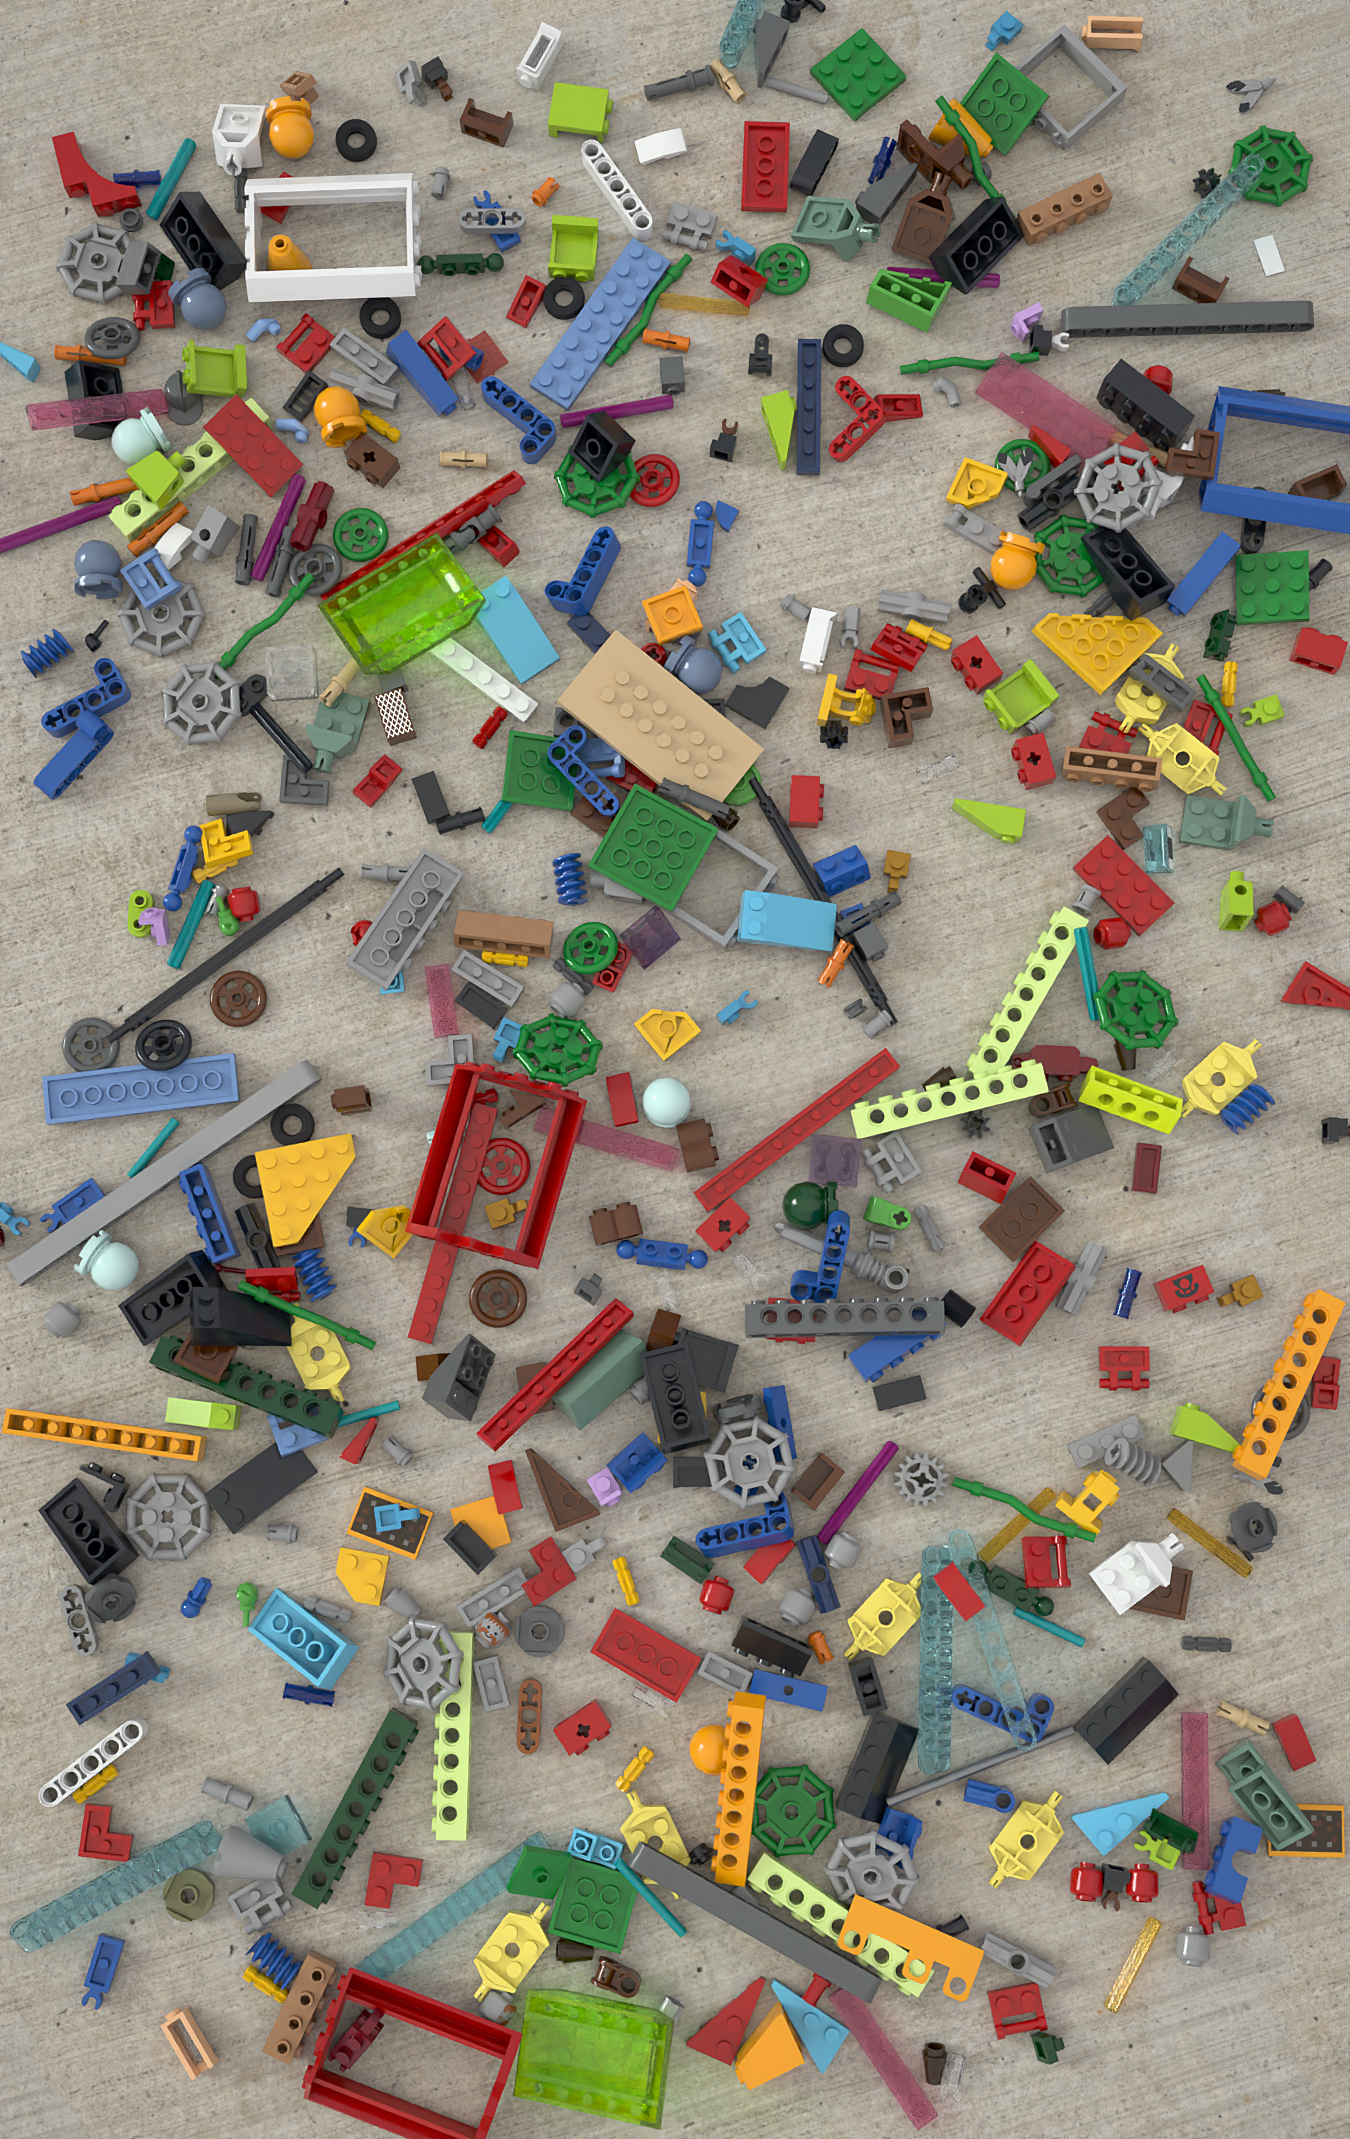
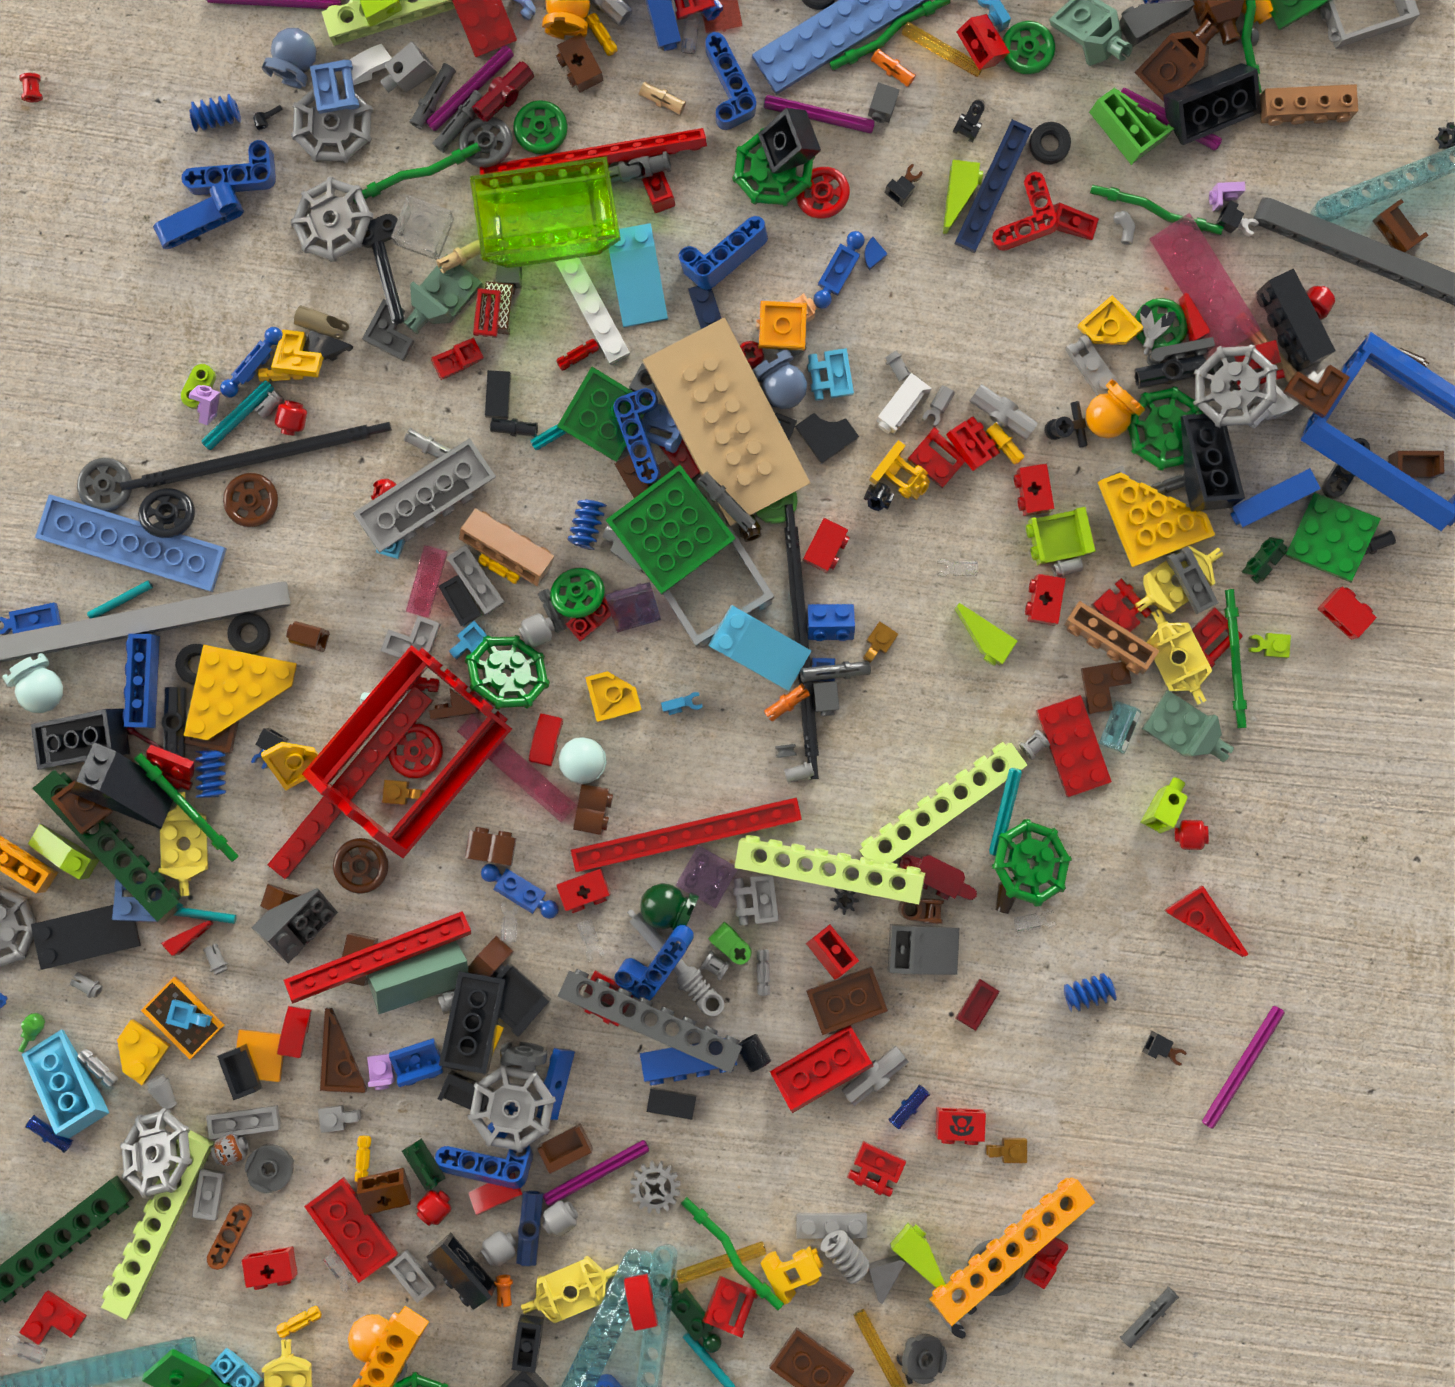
camera: 20 degrees right, 5 degrees up
(156, 530) = (362, 42): orange pin -> none
(228, 923) = (269, 429): bright green piece -> none
(395, 742) = (485, 332): none -> red tile
(554, 1572) = (304, 1124): red plate -> none
(589, 1289) = (442, 893): dark grey tile -> none
(661, 1601) = (384, 1191): none -> reddish brown brick
(804, 1692) = (471, 1324): blue tile -> none
(898, 712) = (947, 501): reddish brown brick -> none
(941, 1076) = (833, 845): dark brown cone -> none
(1111, 933) = (1043, 784): red head -> none
(1130, 1100) = (990, 940): neon yellow brick -> none
(1135, 1571) = (803, 1350): white plate -> none
(1229, 684) = (1252, 607): yellow axle -> none
(1237, 1072) = (1096, 955): light yellow plate -> none
(1291, 901) = (1214, 824): dark grey pin -> none

